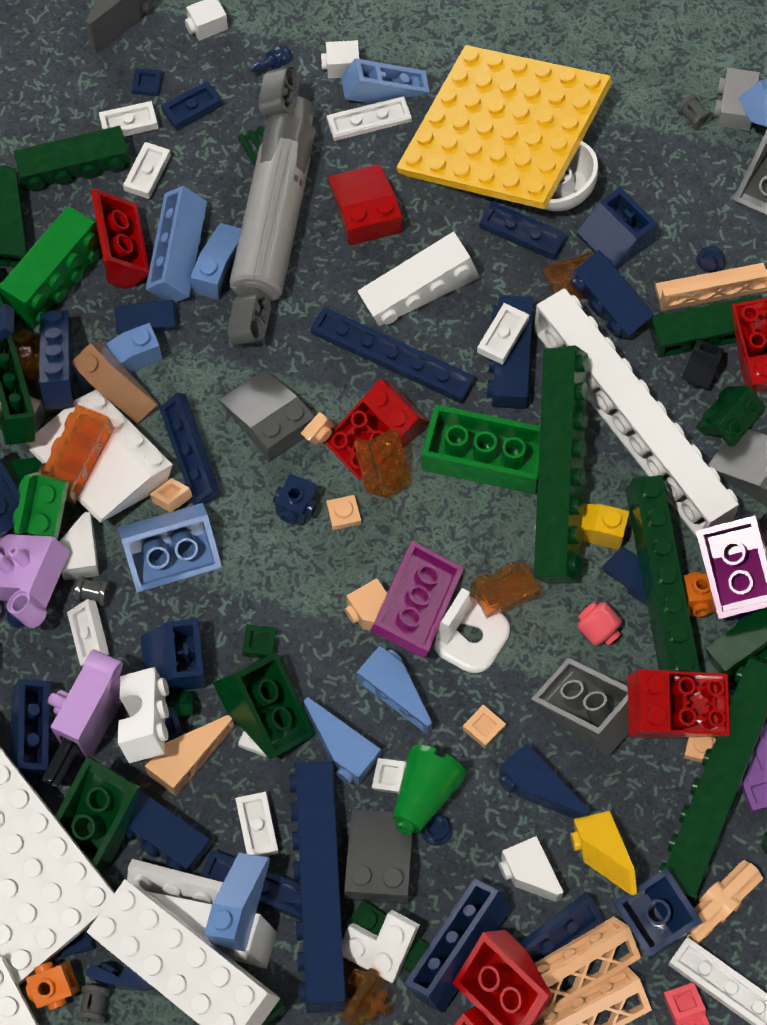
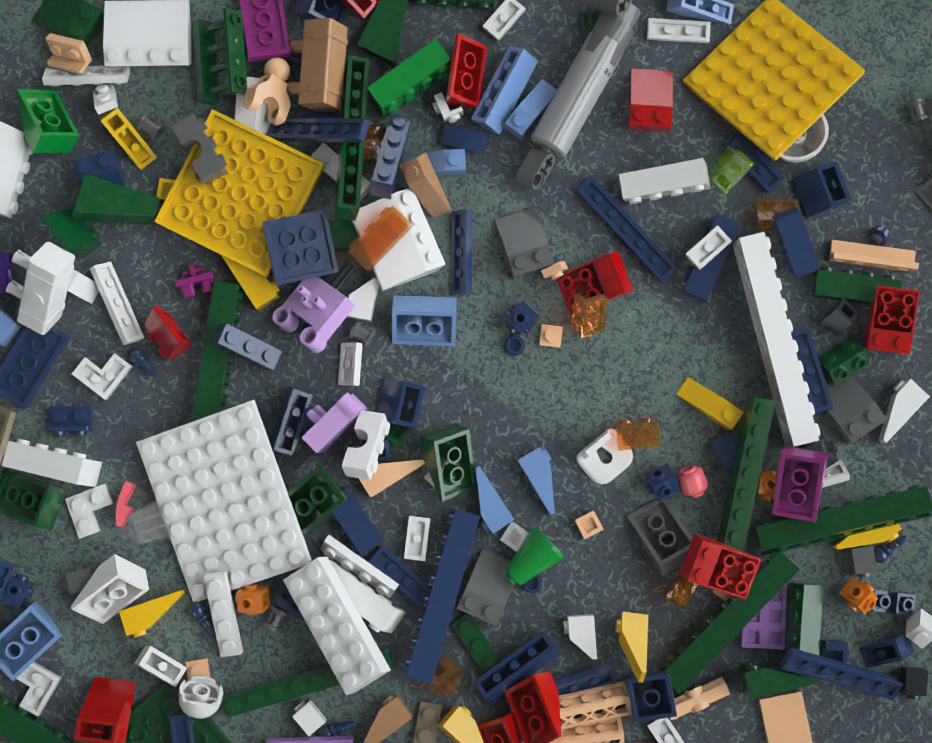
camera: 20 degrees right, 20 degrees up
(40, 505) = (344, 270): green bracket -> none
(104, 291) = (440, 107): none -> white bracket
(171, 495) = (438, 282): light nougat plate -> none
(237, 903) = (385, 597): medium blue slope -> none
(259, 641) = (461, 411): dark green plate -> none
(300, 539) = (514, 345): none -> dark blue plate
(365, 603) = (546, 417): light nougat slope -> none
(381, 952) = (468, 654): white plate -> none
(417, 599) = (576, 423): magenta plate -> none
(482, 449) = (663, 327): green brick -> none
(497, 242) = (731, 169): none -> clear neon green slope
(538, 783) = (607, 574): dark blue slope -> none
(559, 637) = (661, 482): none -> dark blue brick
(561, 465) = (710, 363): dark green brick -> none
(642, 762) = (681, 592): none -> clear orange hips
(695, 433) = (812, 373): none -> dark blue plate

